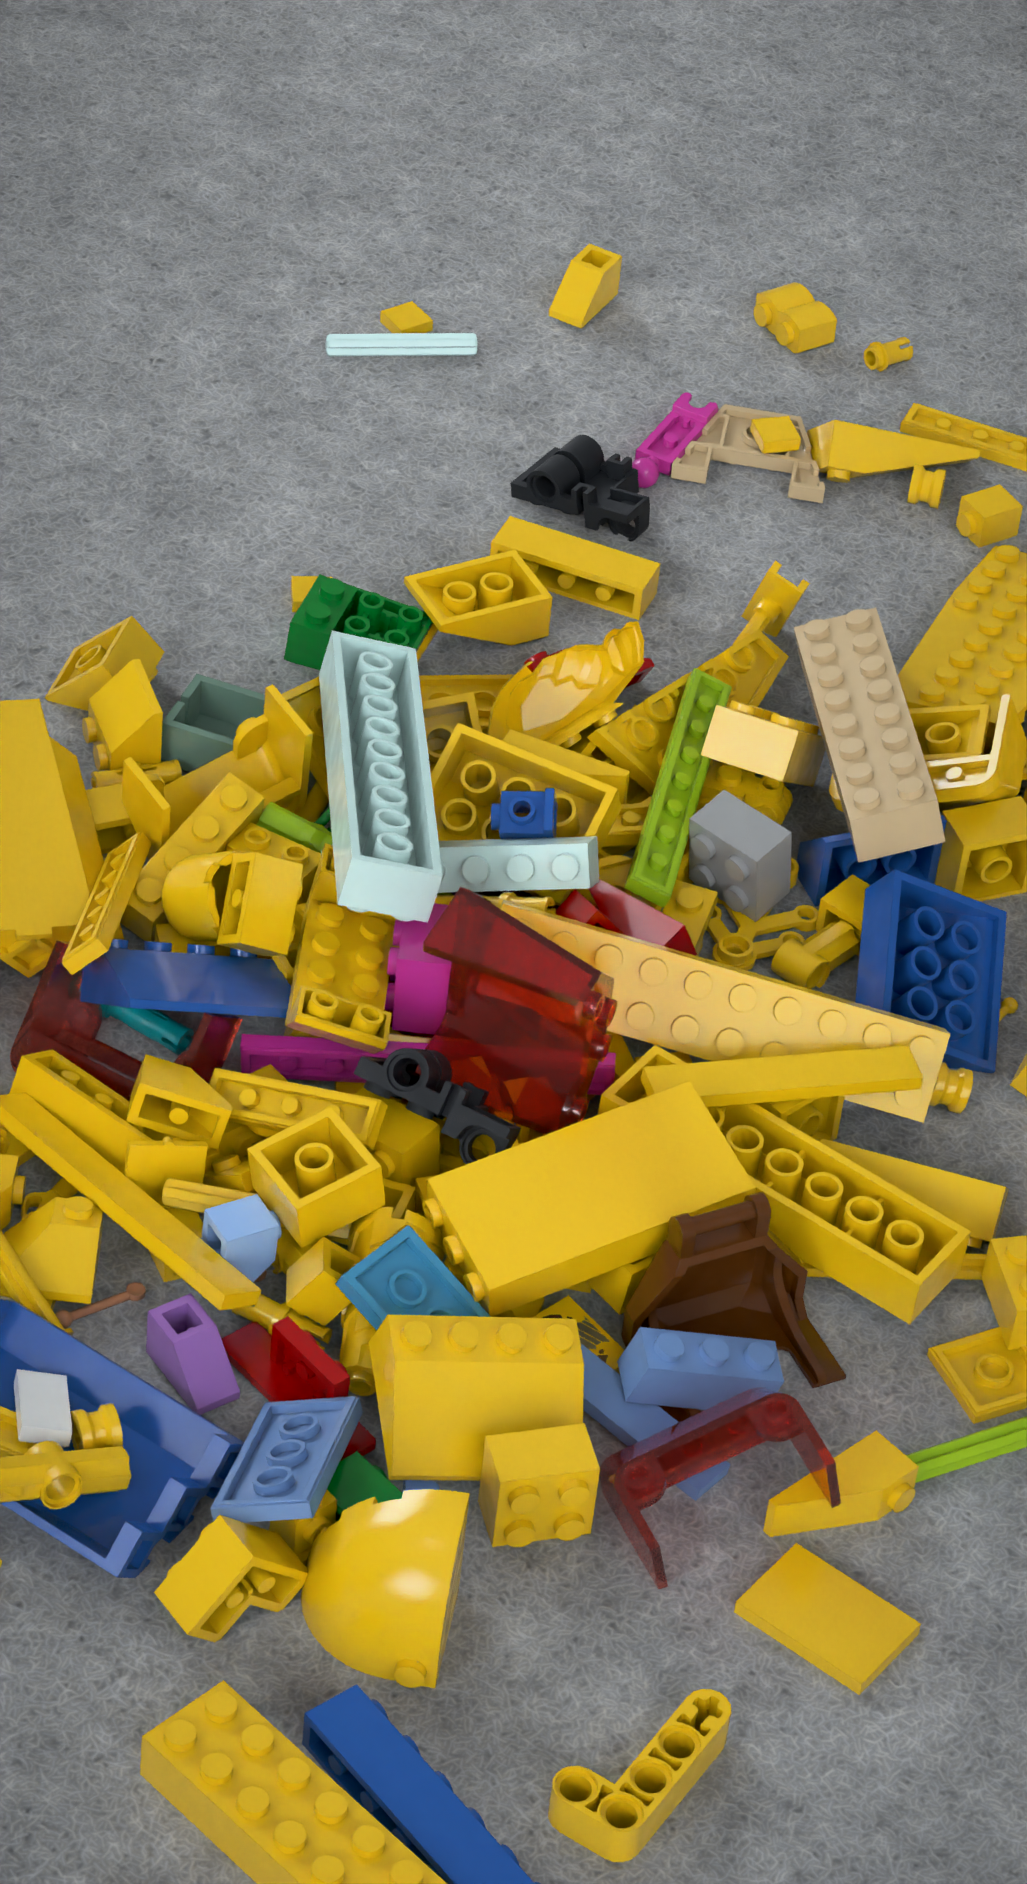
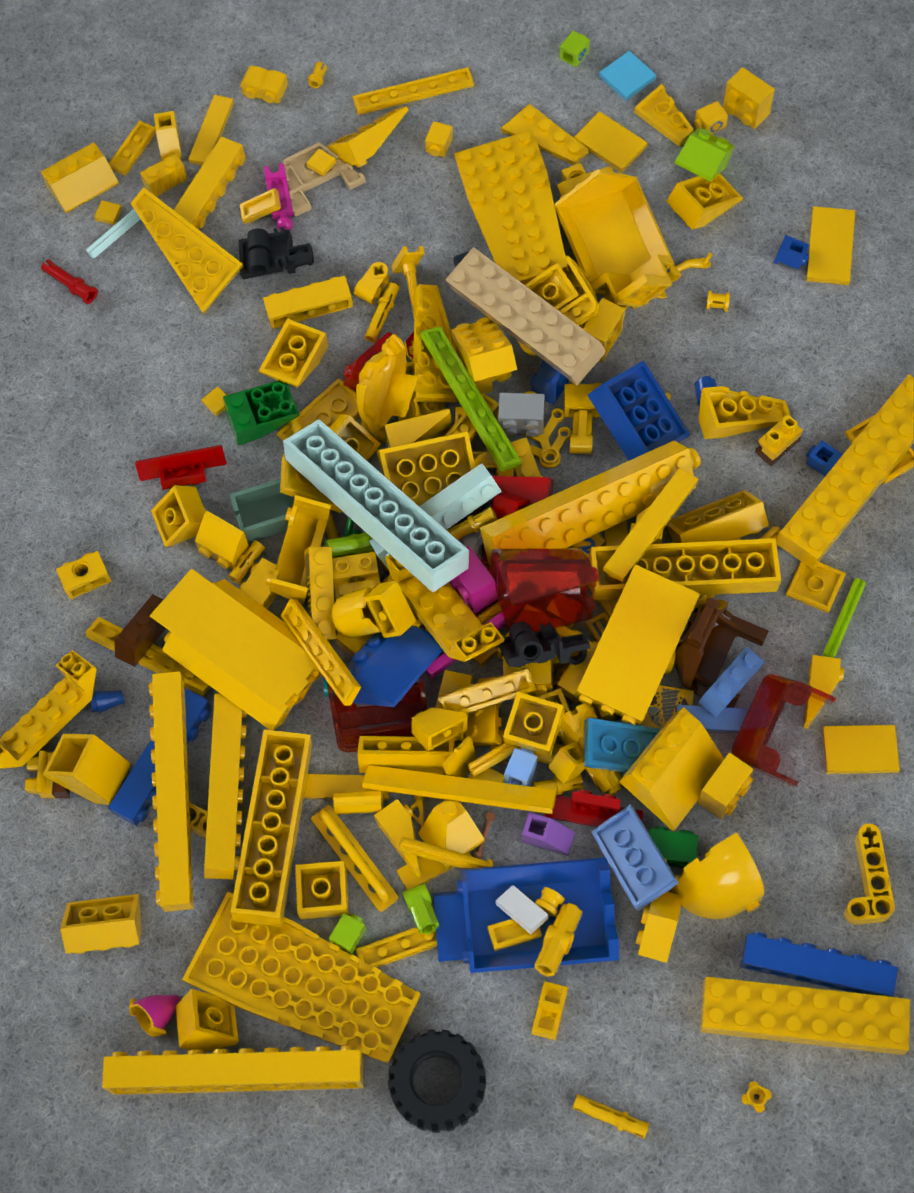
camera: 30 degrees left, 25 degrees up
(177, 624) = (182, 467): none -> red bracket
(266, 361) = (75, 285): none -> red pin
(409, 258) = (79, 177): none -> yellow slope
(464, 412) = (194, 257): none -> yellow wing
(518, 278) = (132, 147): none -> yellow tile
(530, 322) = (164, 175): none -> yellow brick
(540, 821) = (449, 466): blue brick -> none
(564, 373) = (211, 182): none -> yellow brick
(631, 430) = (260, 206): none -> yellow tile
(659, 324) = (211, 129): none -> yellow tile
(688, 639) = (385, 304): none -> yellow pin
(693, 605) = (372, 283): none -> yellow piece
(926, 486) = (400, 141): yellow wheel -> none

